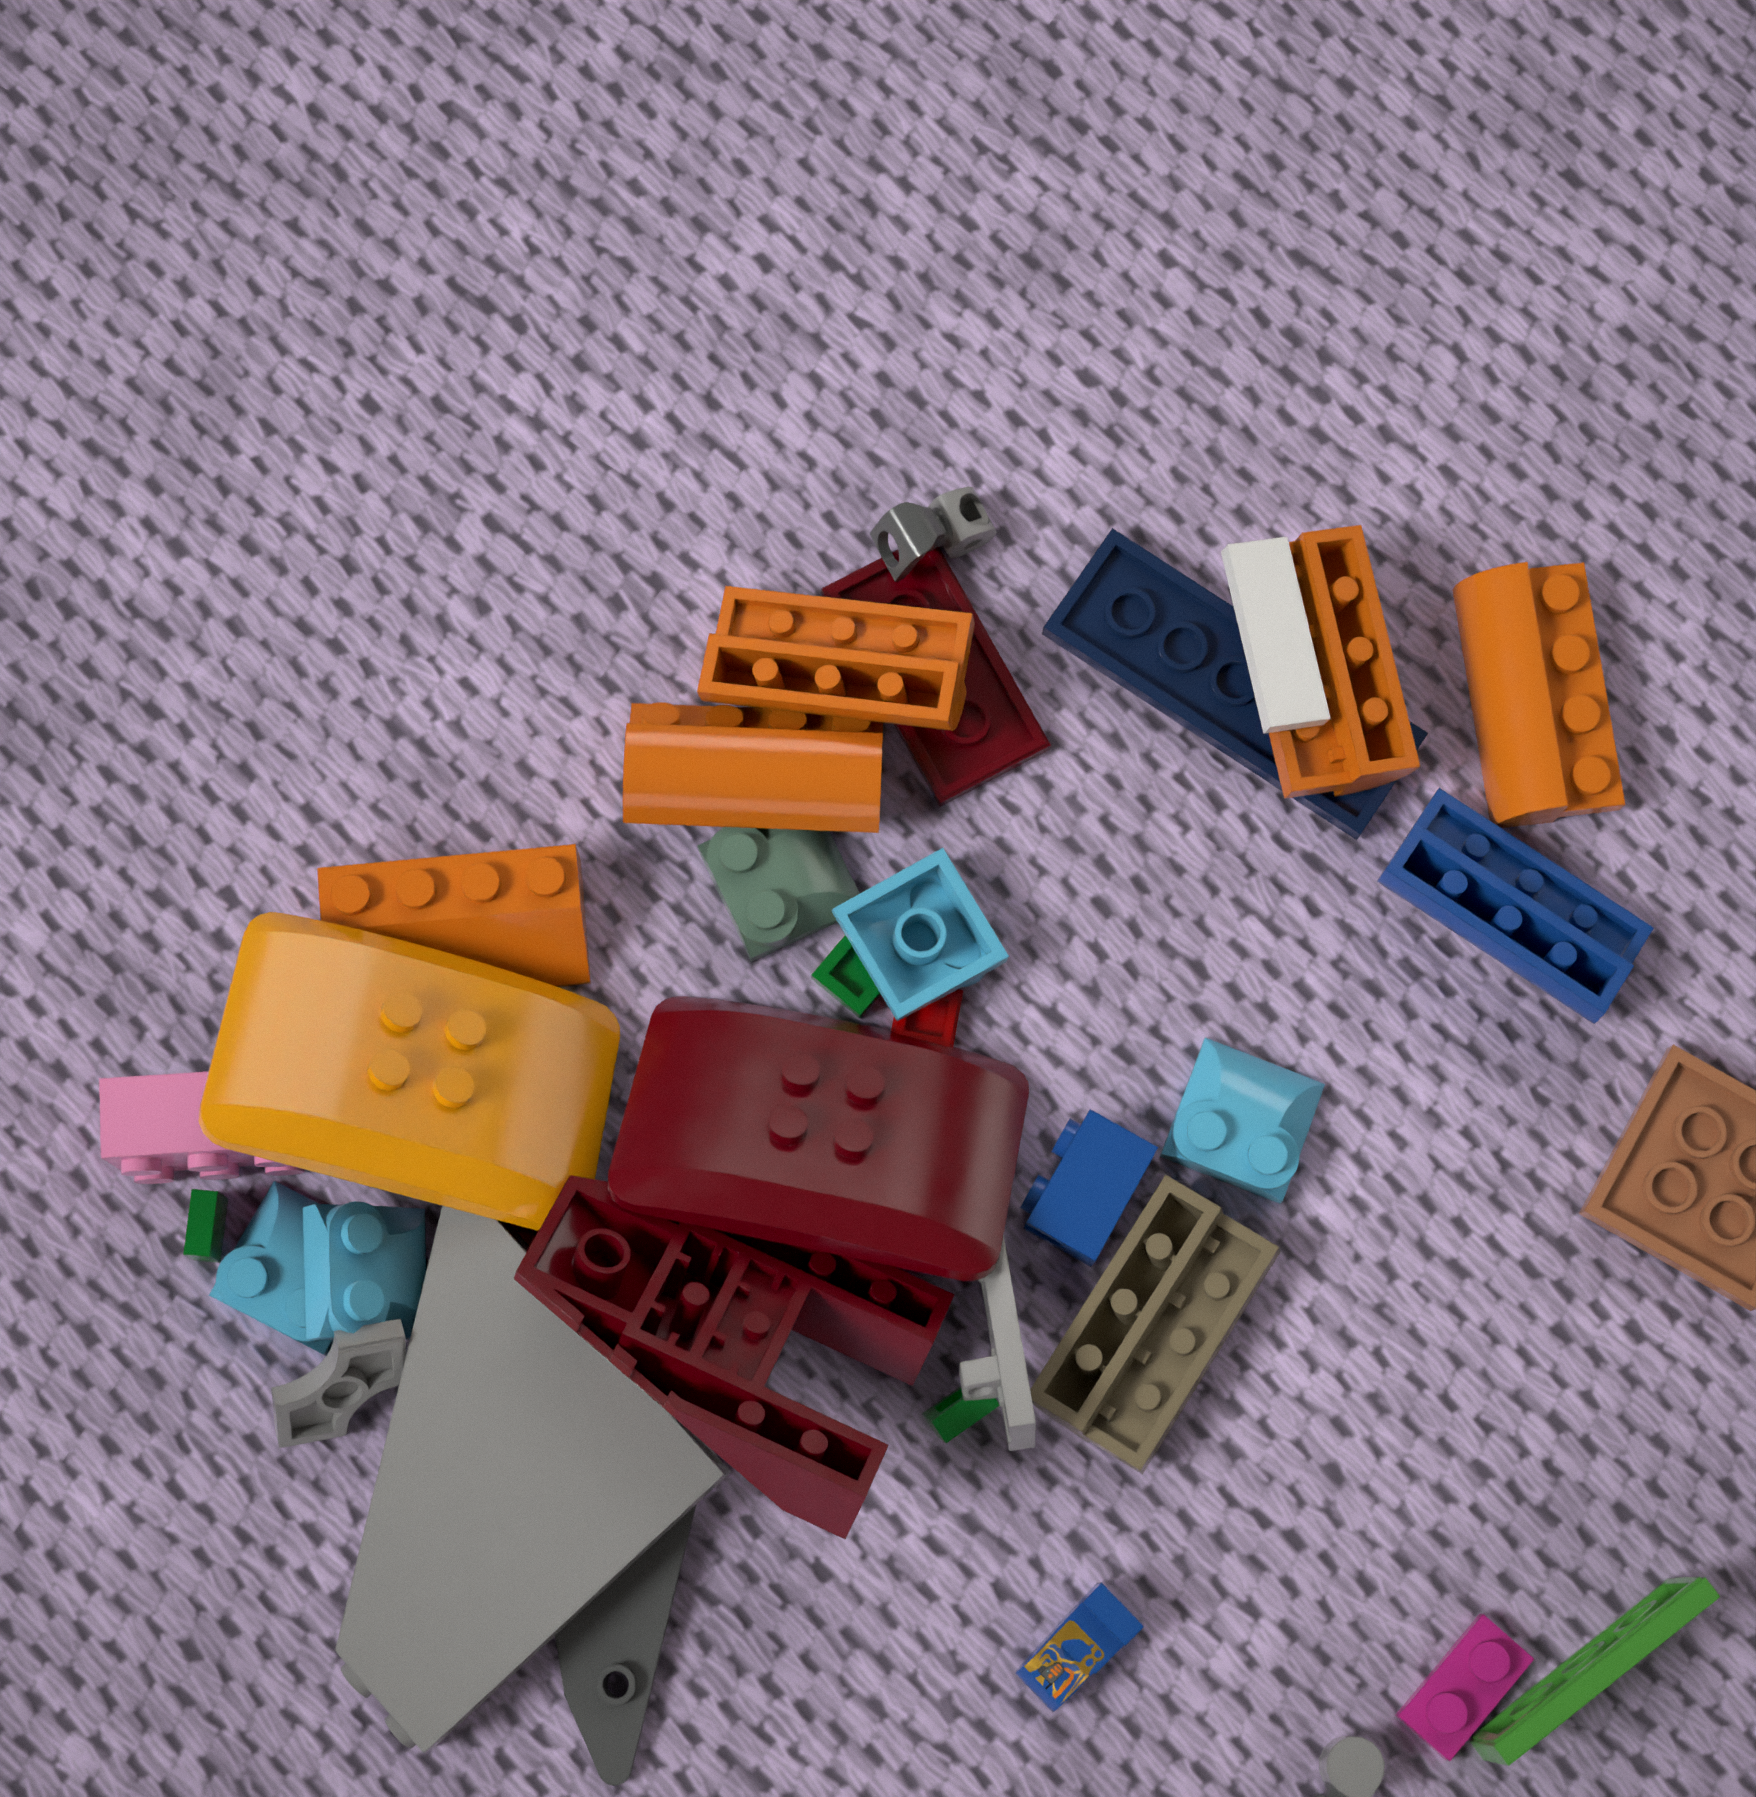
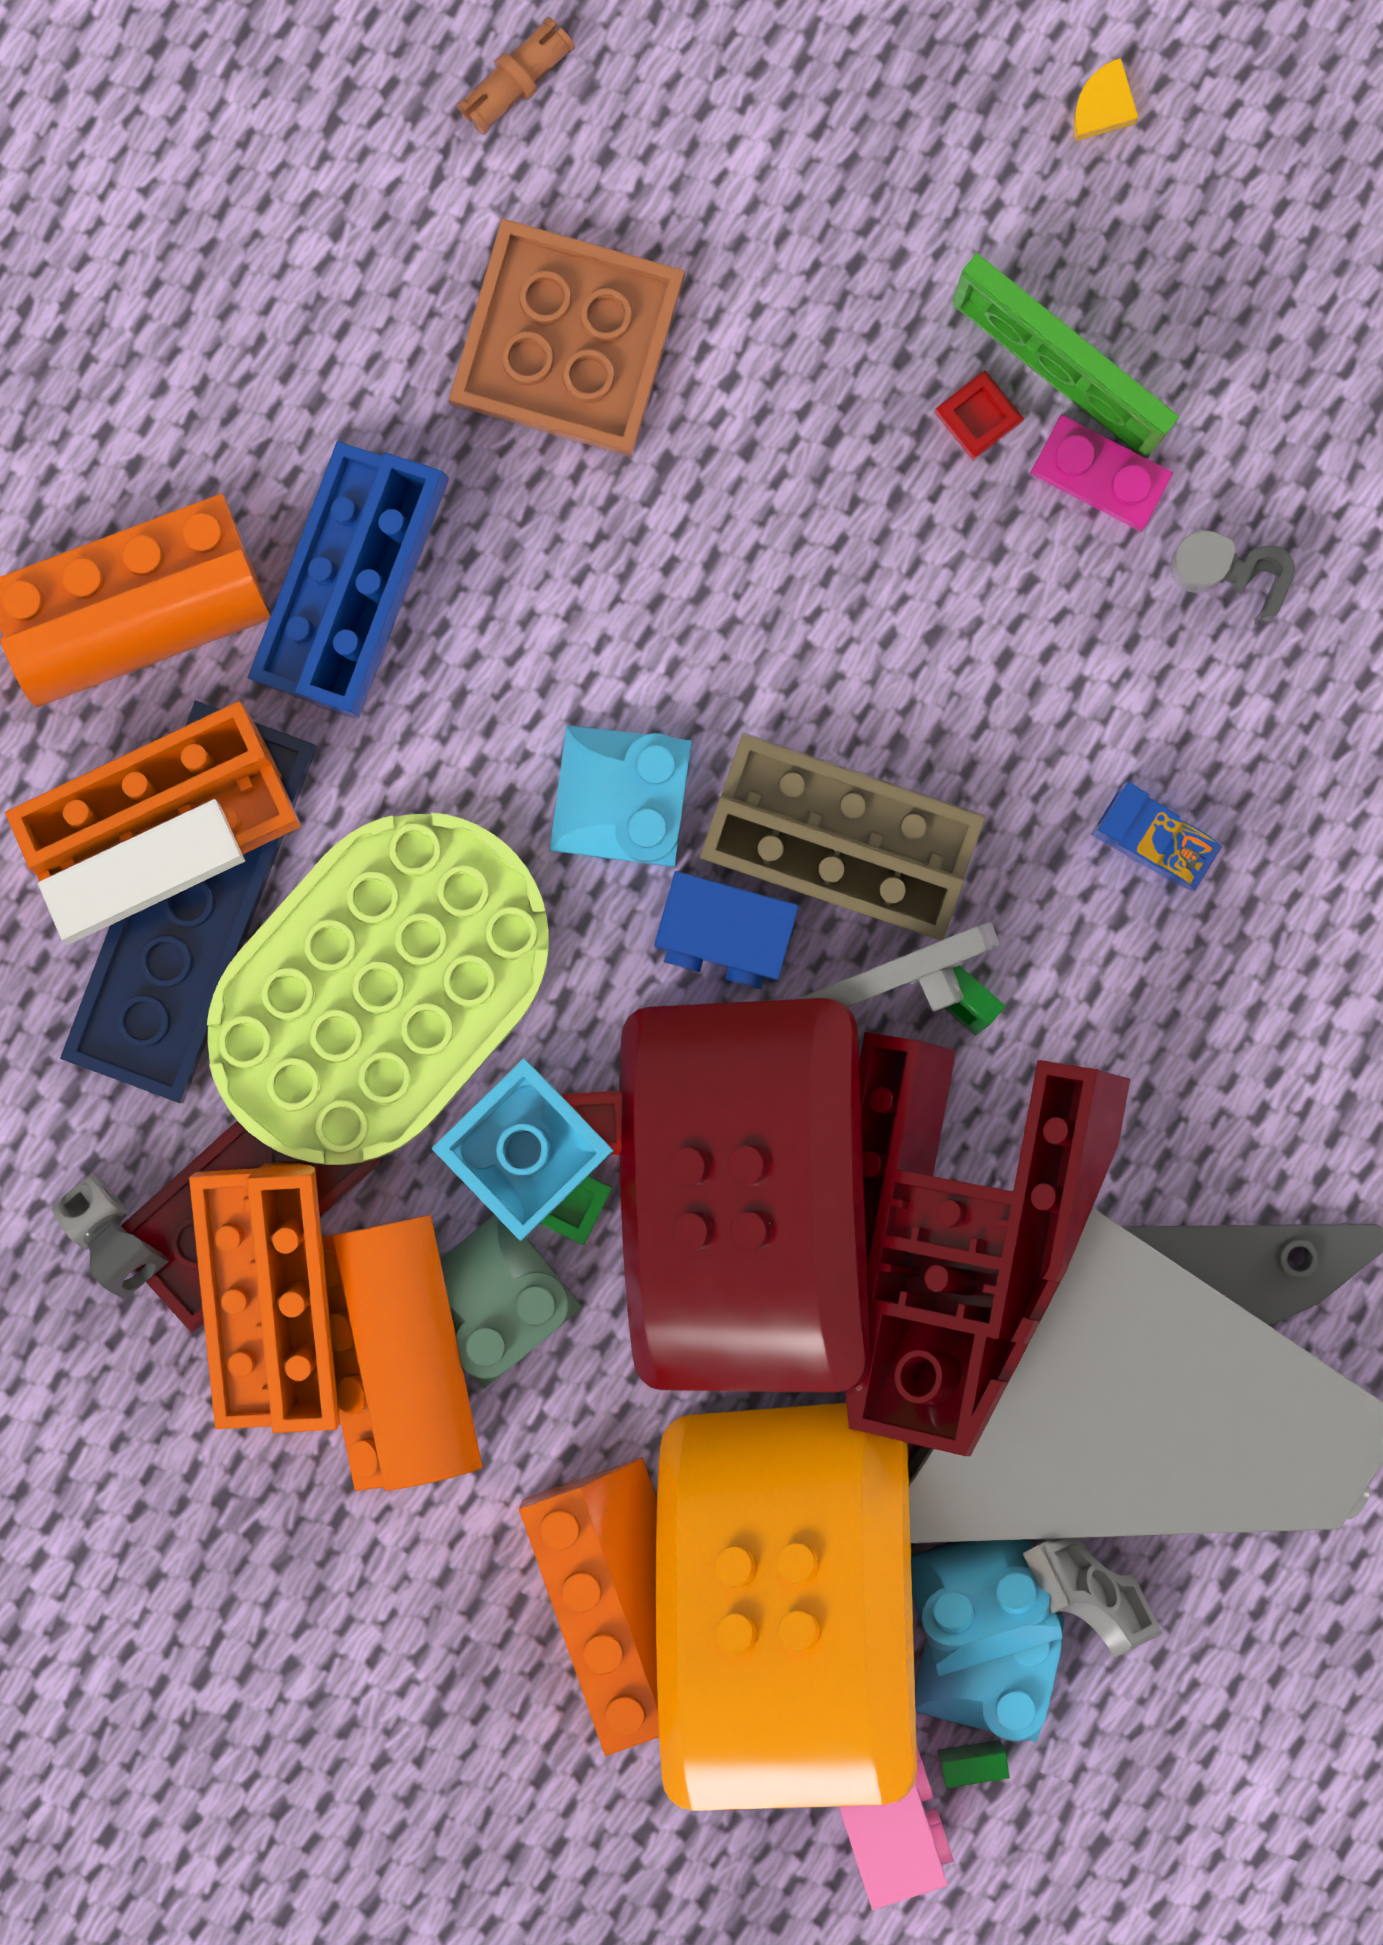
camera: 95 degrees left, 10 degrees up
(1109, 839) = (377, 988): none -> yellowish green plate
(1549, 1575) = (979, 415): none -> red tile

